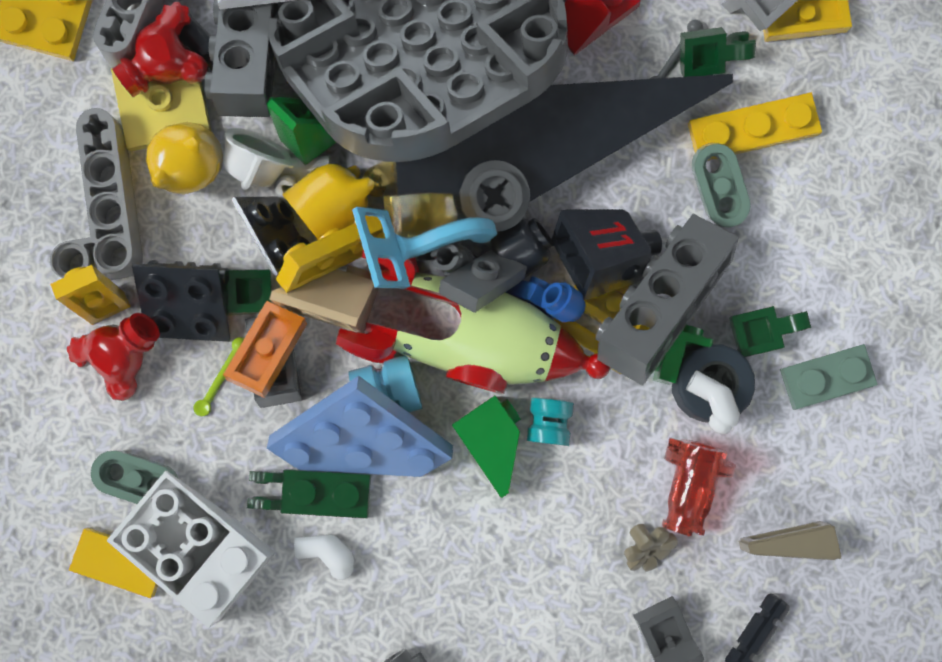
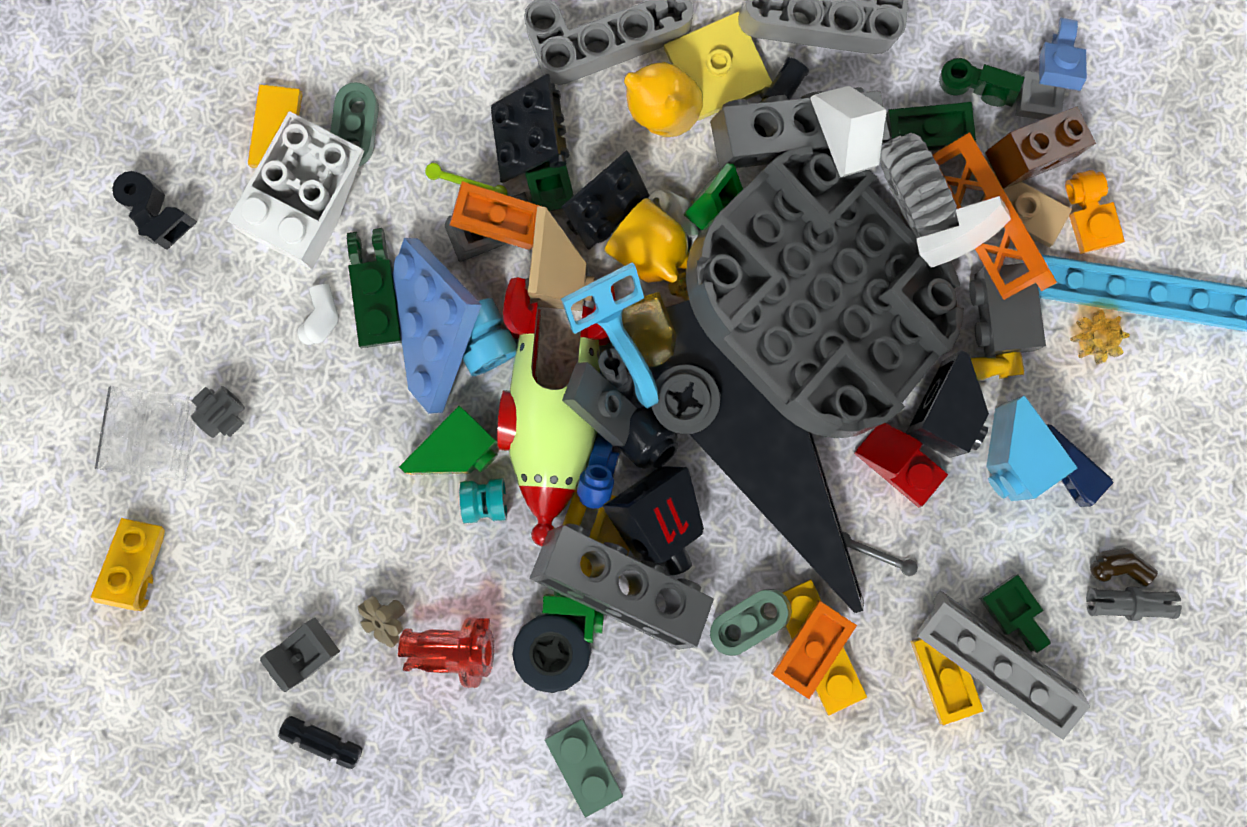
camera: 85 degrees right, 0 degrees up
(90, 294) = (513, 42): yellow plate -> none
(116, 352) = (467, 80): red animal -> none
(161, 54) = (758, 54): red animal -> none
(254, 158) = (679, 165): white piece -> none
(333, 250) = (597, 254): yellow plate -> none
(708, 50) = (885, 584): dark green plate -> none
(721, 401) = (532, 659): white arm -> none
(760, 128) = (813, 649): none -> orange plate
(762, 330) = (614, 691): dark green plate -> none
(807, 541) = (415, 766): dark tan slope -> none

